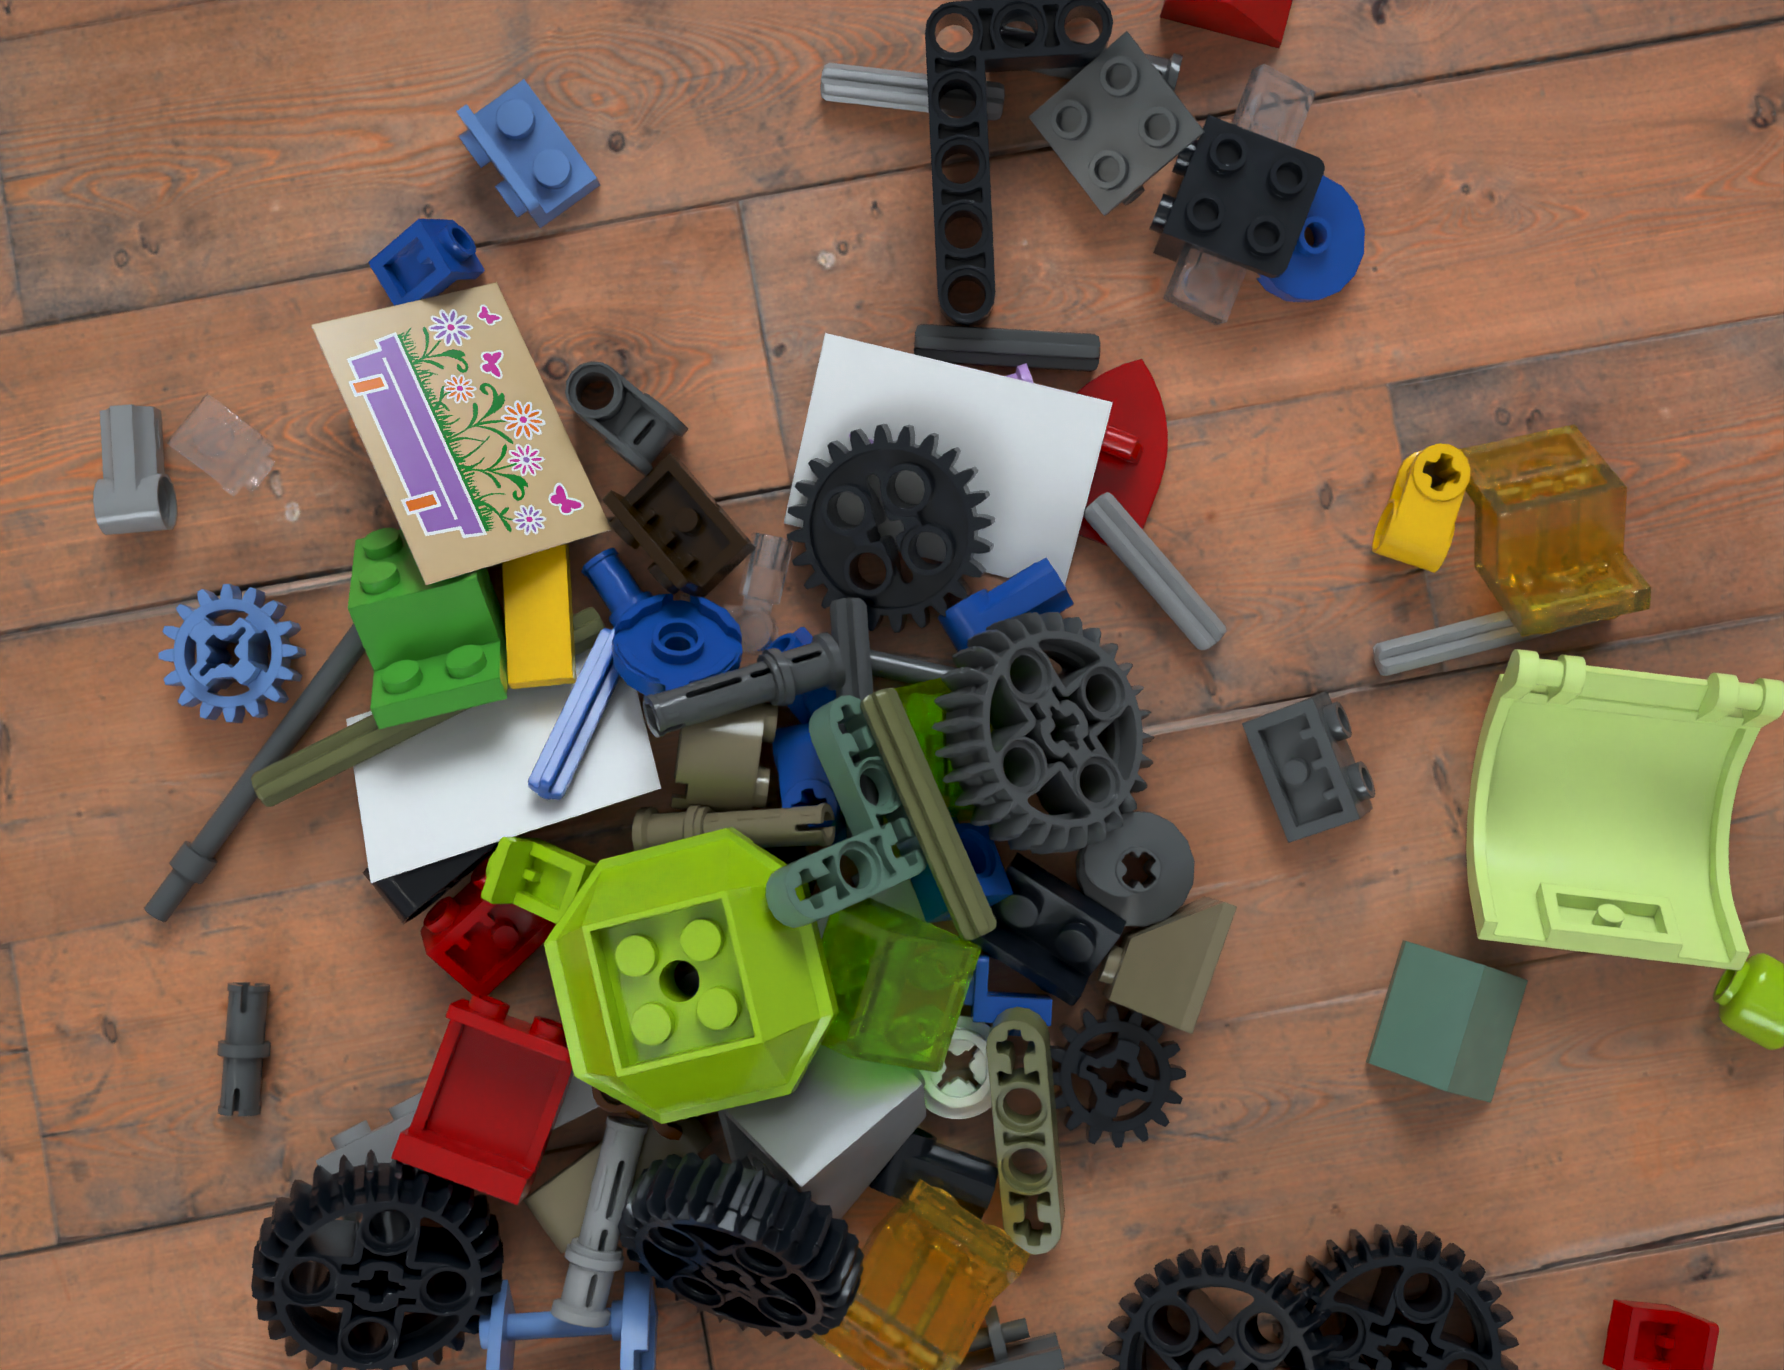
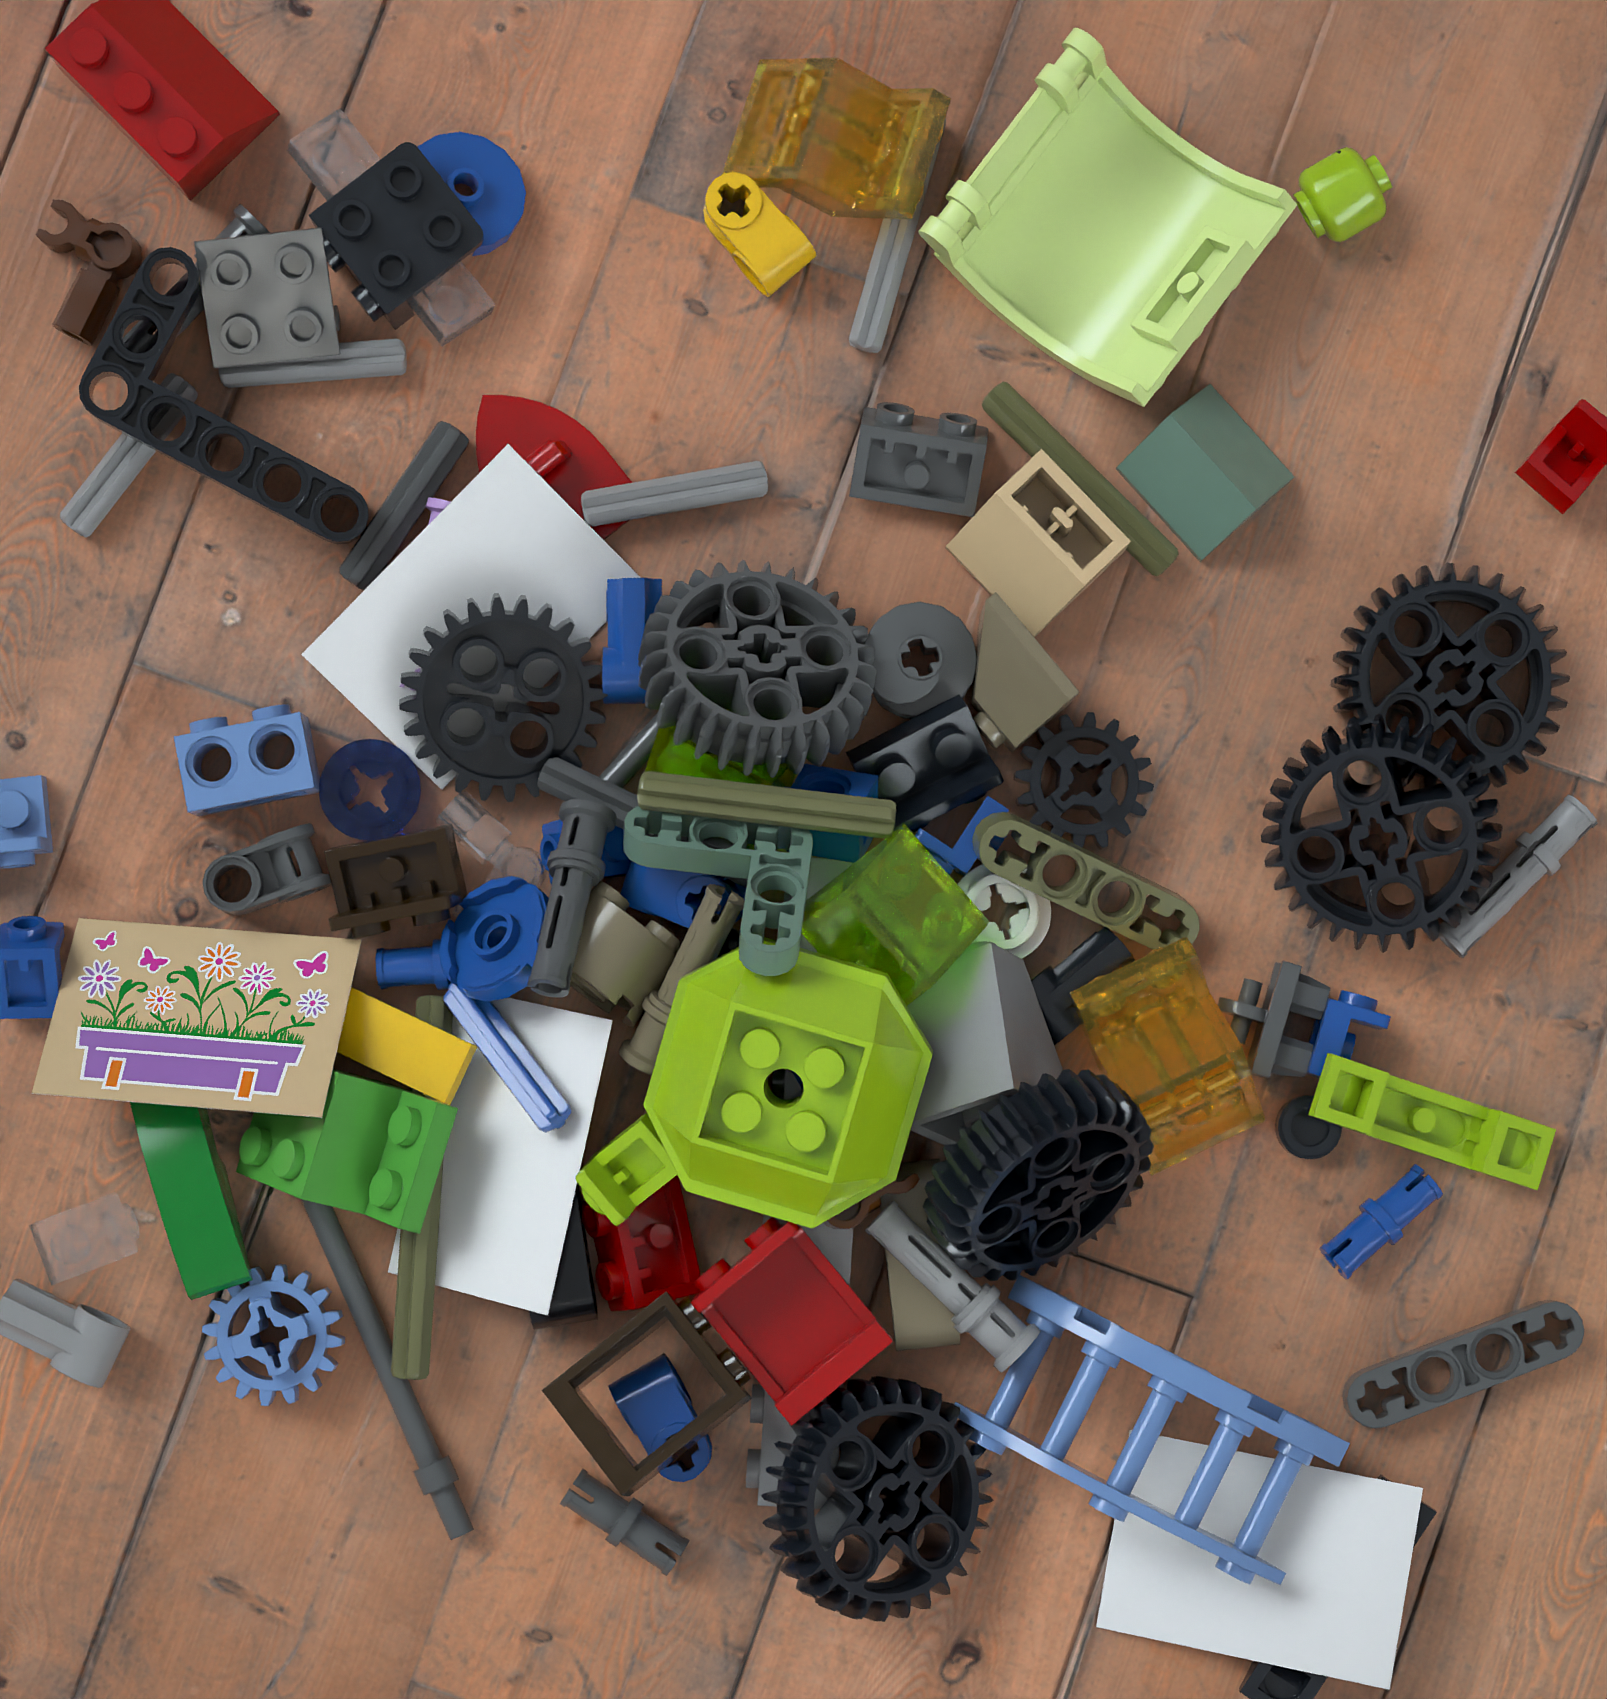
camera: 65 degrees left, 0 degrees up
(293, 985) = (595, 1433): none -> dark brown window
(305, 518) = (192, 1196): none -> green slope
(354, 1024) = (658, 1407): none -> blue piece
(698, 351) = (249, 778): none -> medium blue brick
(734, 435) = (340, 786): none -> clear blue gear
(1105, 232) = (356, 360): none -> light grey axle
(1302, 913) = (1038, 543): none -> tan slope
(1376, 915) = (1035, 433): none -> olive axle

